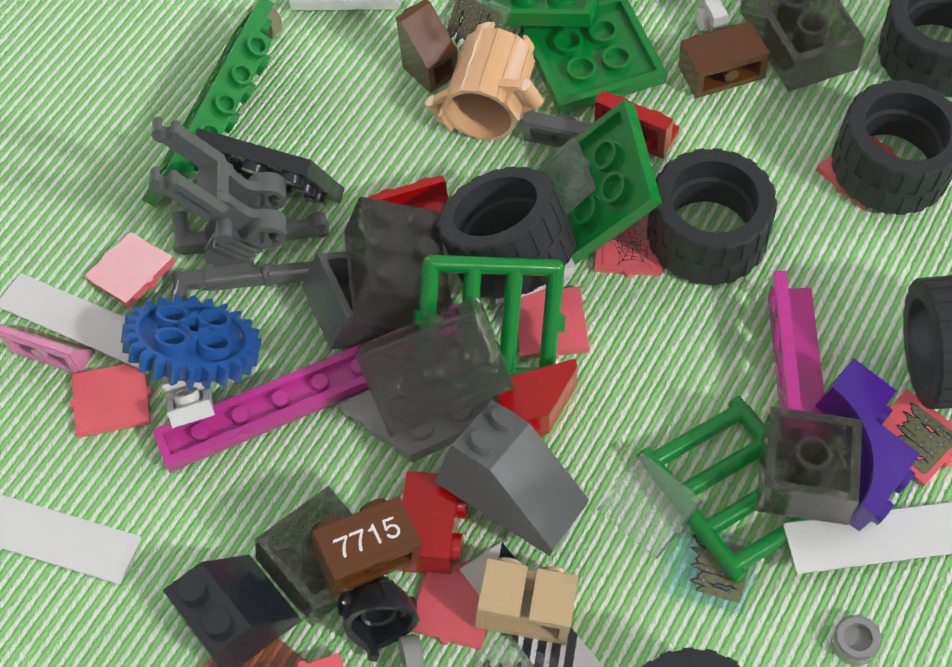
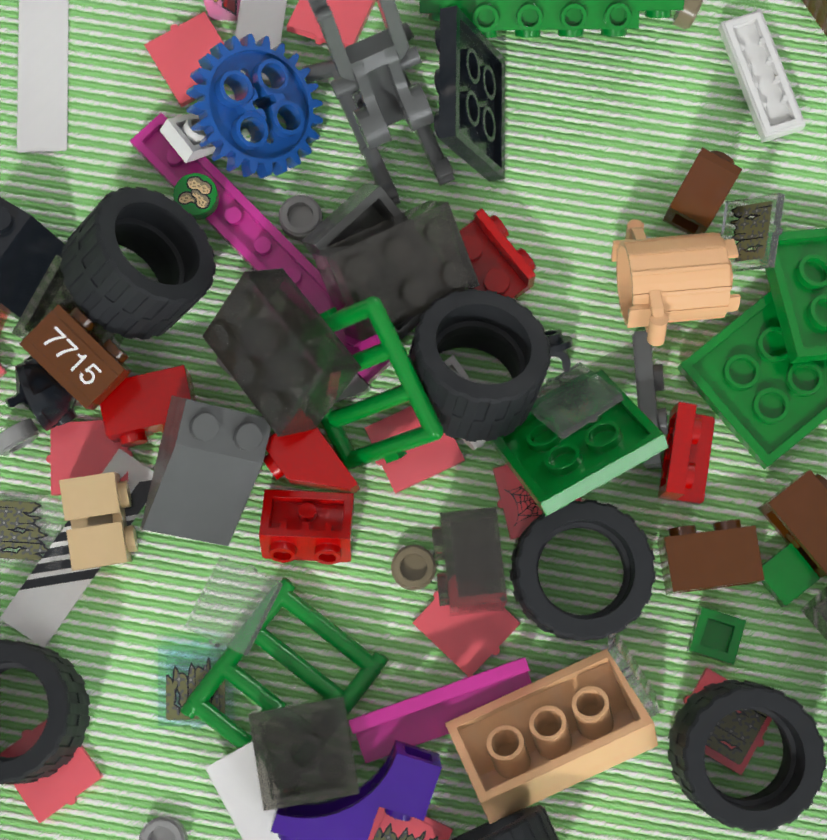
camera: 70 degrees right, 20 degrees up
(249, 418) = (197, 195): none -> tile
(296, 469) = (115, 291): none -> black tyre
(304, 349) = (299, 216): none -> light grey tile
(595, 422) = (306, 526): none -> red bracket
(661, 353) = (413, 567): none -> dark tan tile
(677, 289) = (472, 562): none -> clear smoke brick
(724, 329) = (466, 638): none -> coral piece
(729, 121) = (710, 558): none -> reddish brown brick
(757, 92) = (788, 575): none -> green tile
(792, 152) = (716, 635): none -> green tile
(811, 202) = (633, 674): none -> clear piece
(844, 282) = (551, 735): none -> light nougat slope

